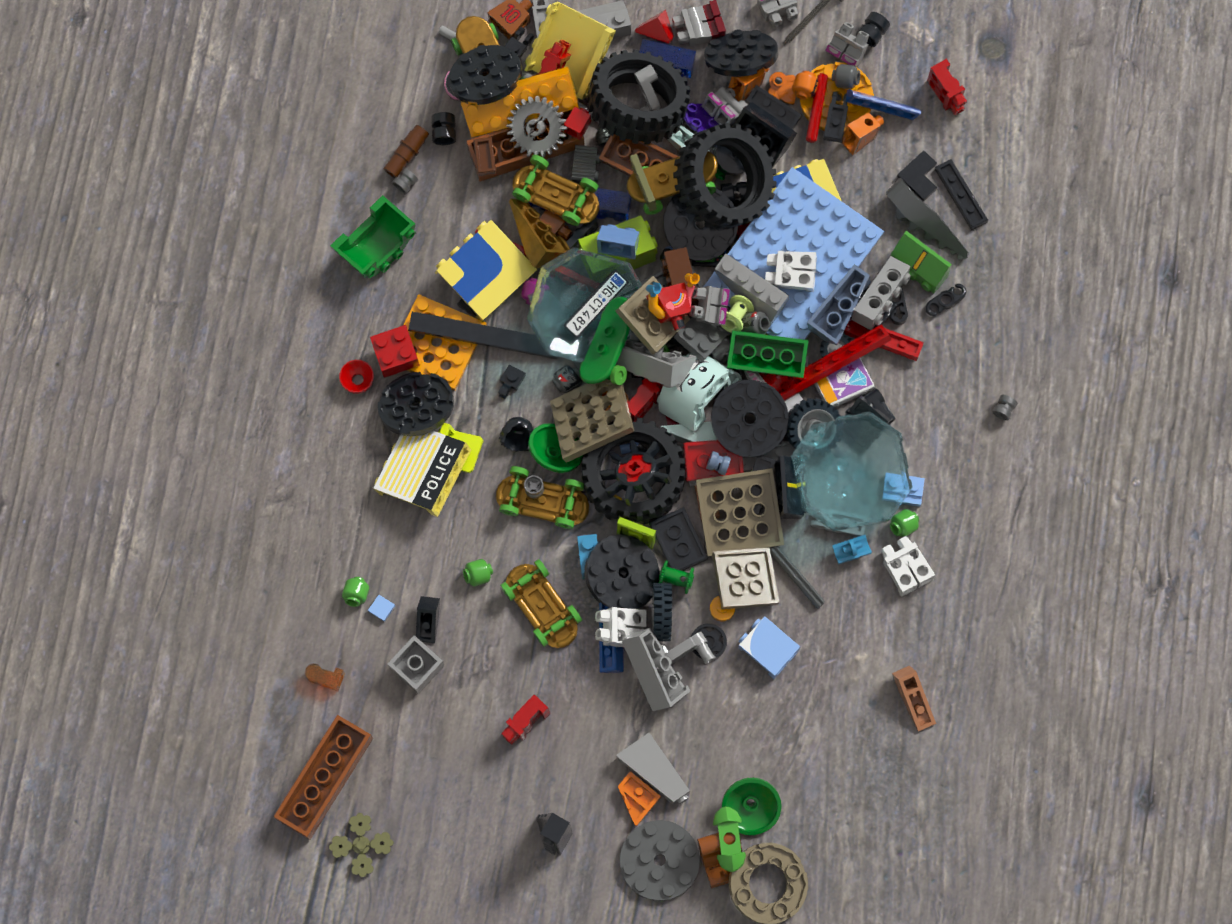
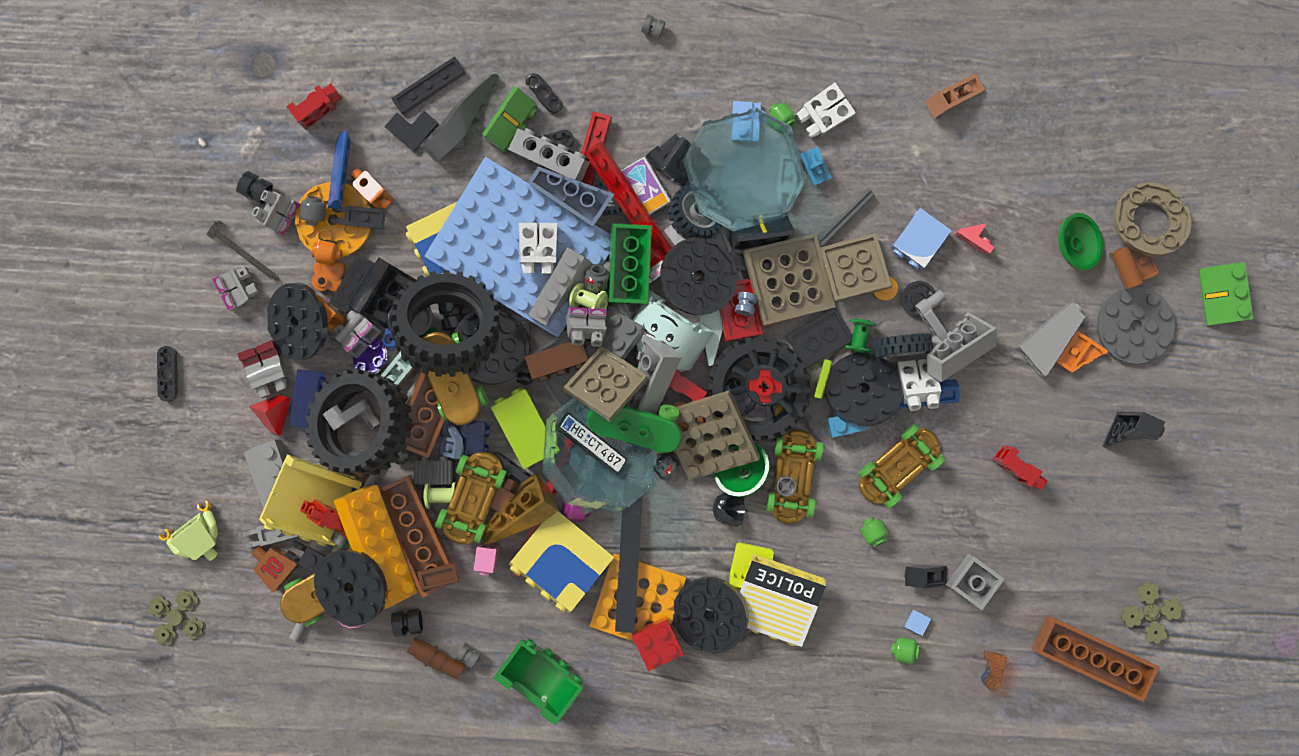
camera: 100 degrees left, 15 degrees up
(354, 368) = (684, 688): red piece -> none
(496, 203) = (486, 559): none -> bright pink brick
(511, 380) = (669, 521): black plate -> none
(545, 111) = (415, 537): light grey gear -> none
(562, 163) = (438, 495): none -> yellowish green hose
(577, 122) = (393, 483): red brick -> none
(608, 181) = (450, 441): none -> sand blue wing
(618, 241) = (524, 427): medium blue slope -> none
(643, 183) = (461, 407): olive tile -> none
(672, 301) = (591, 363): torso -> none
(731, 855) = (1108, 261): bright green piece -> none
(768, 699) = (971, 236): none -> coral slope
(816, 109) = (351, 238): red axle -> none

